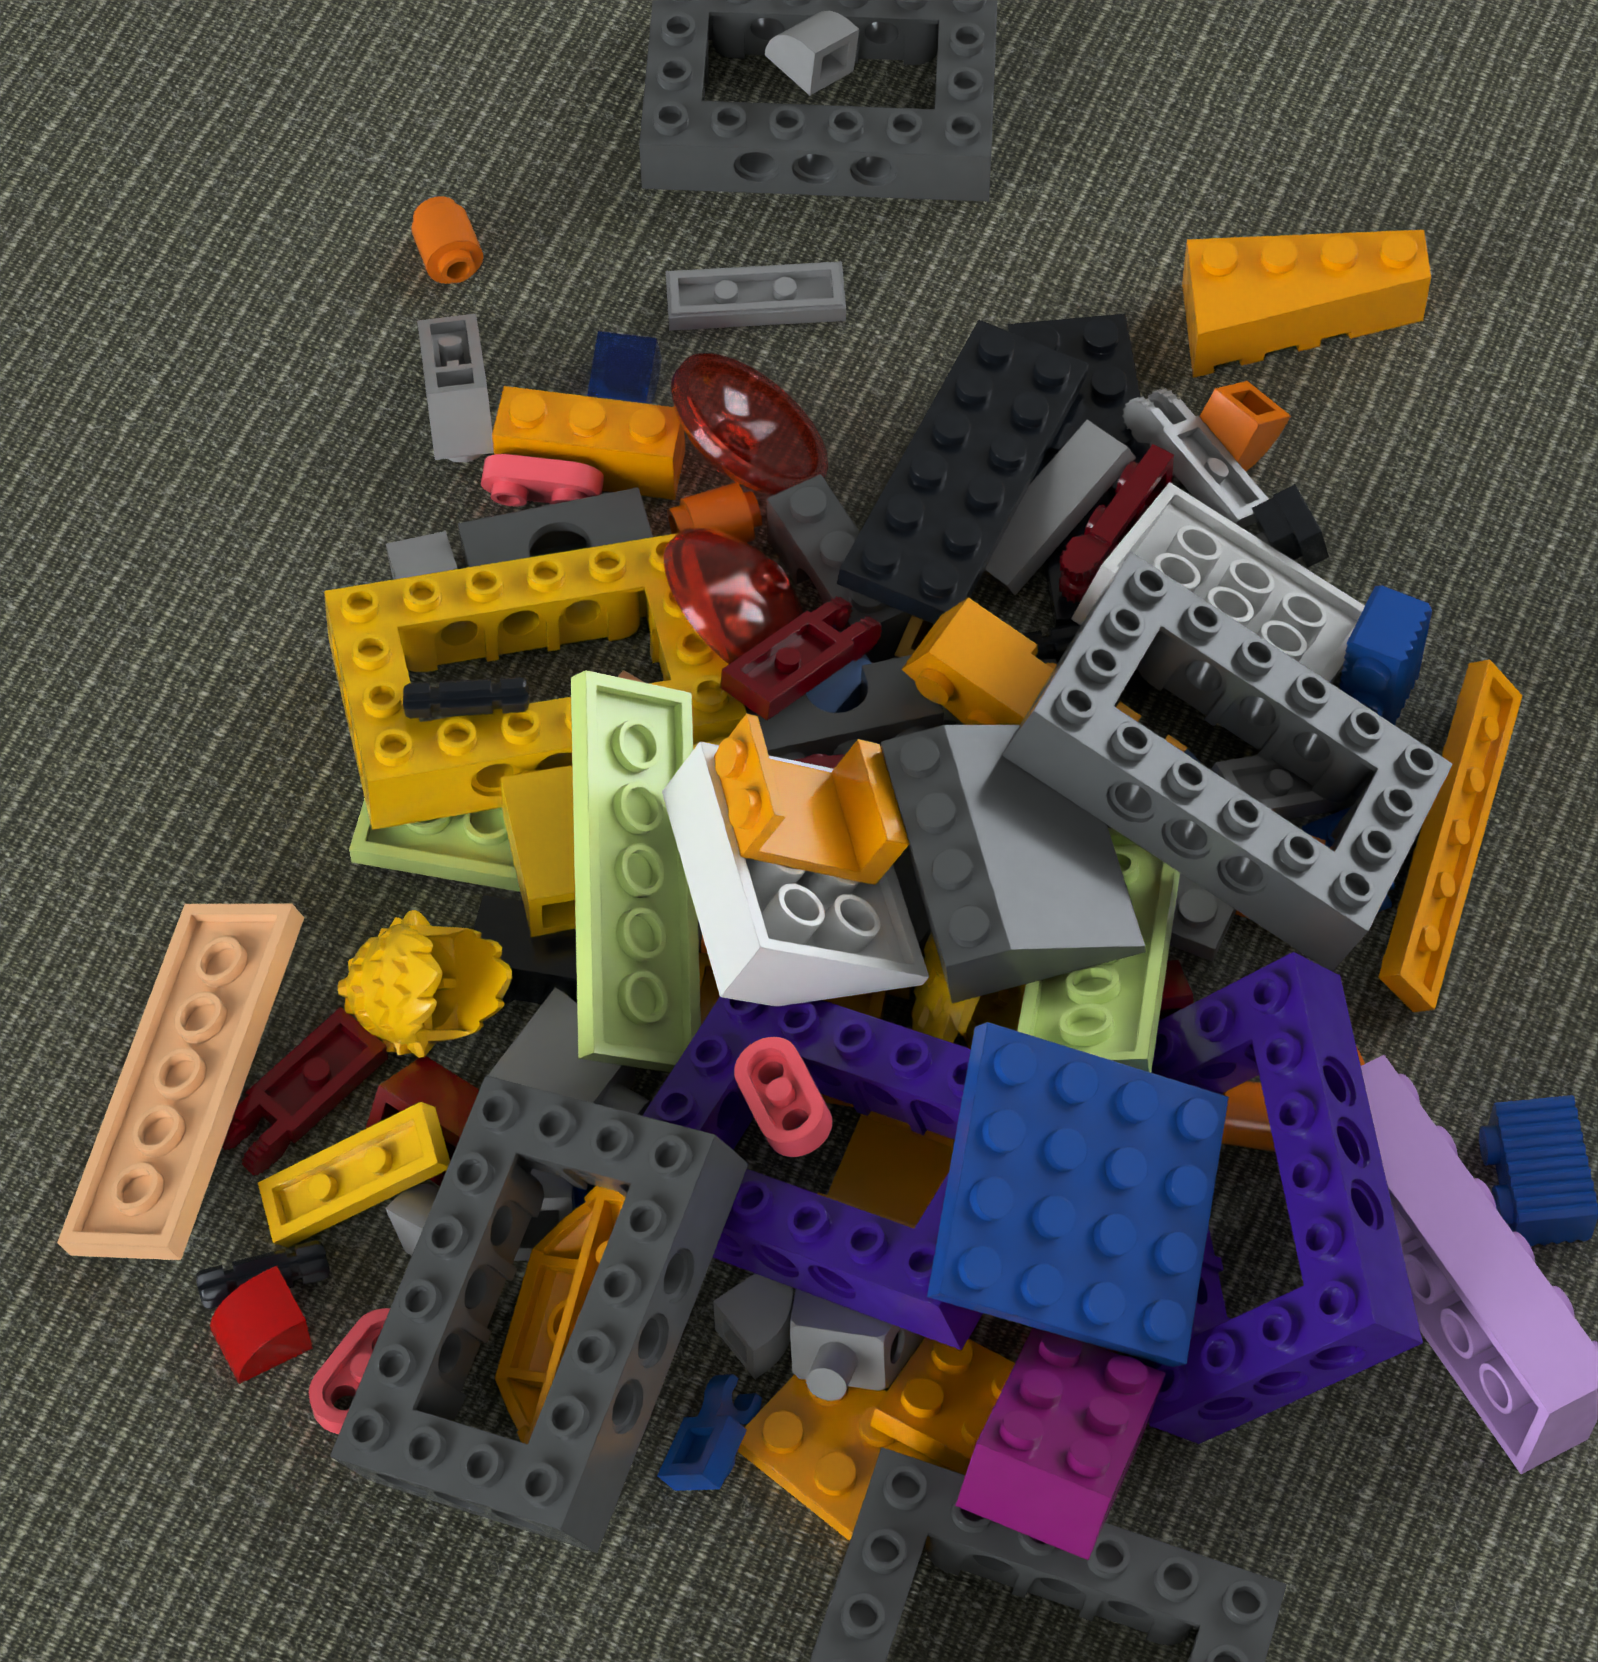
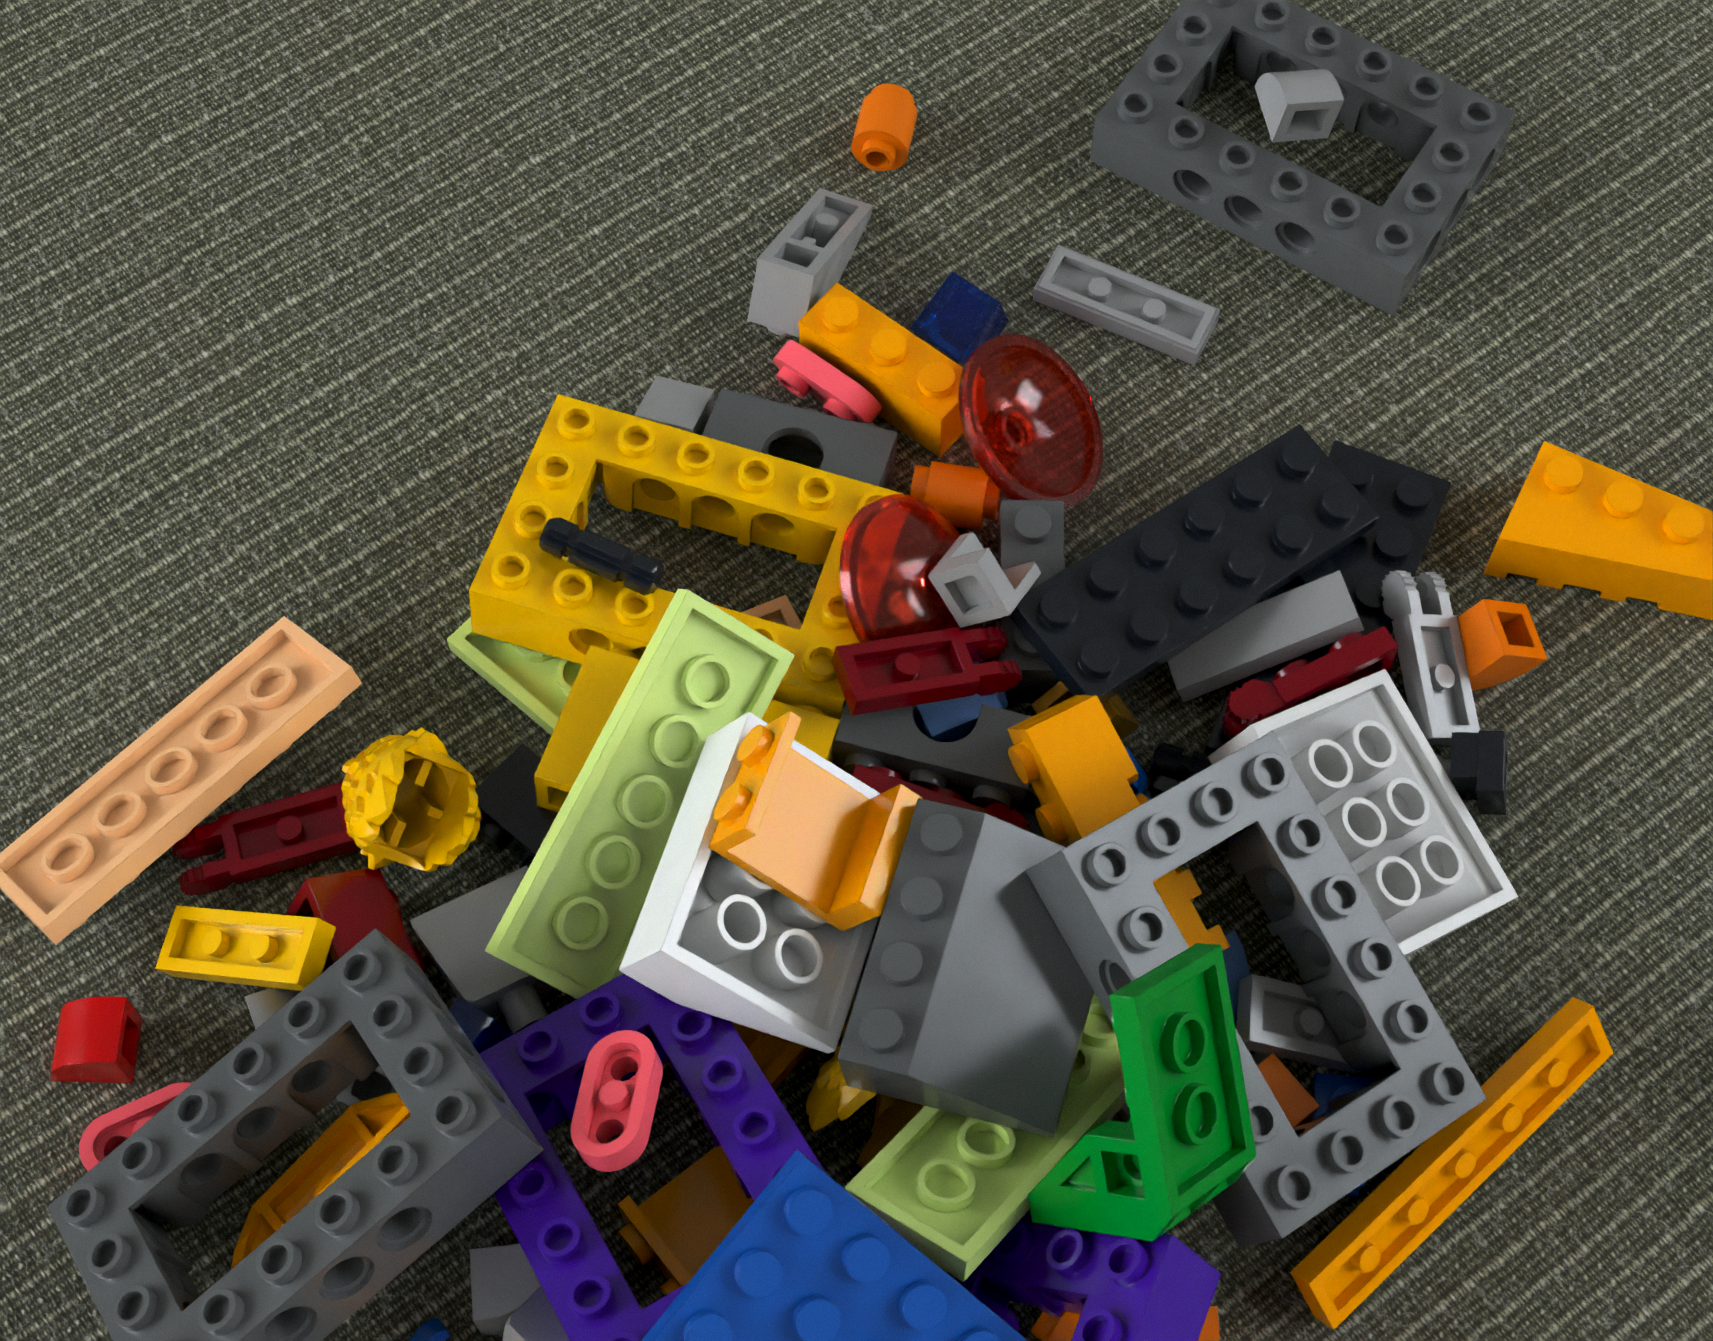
camera: 30 degrees right, 5 degrees up
(306, 1263) = (146, 994): black axle -> none
(803, 565) = (976, 585): none -> light grey panel
(1254, 877) = (1185, 1106): none -> green bracket
(1386, 651) = (1487, 949): blue brick -> none

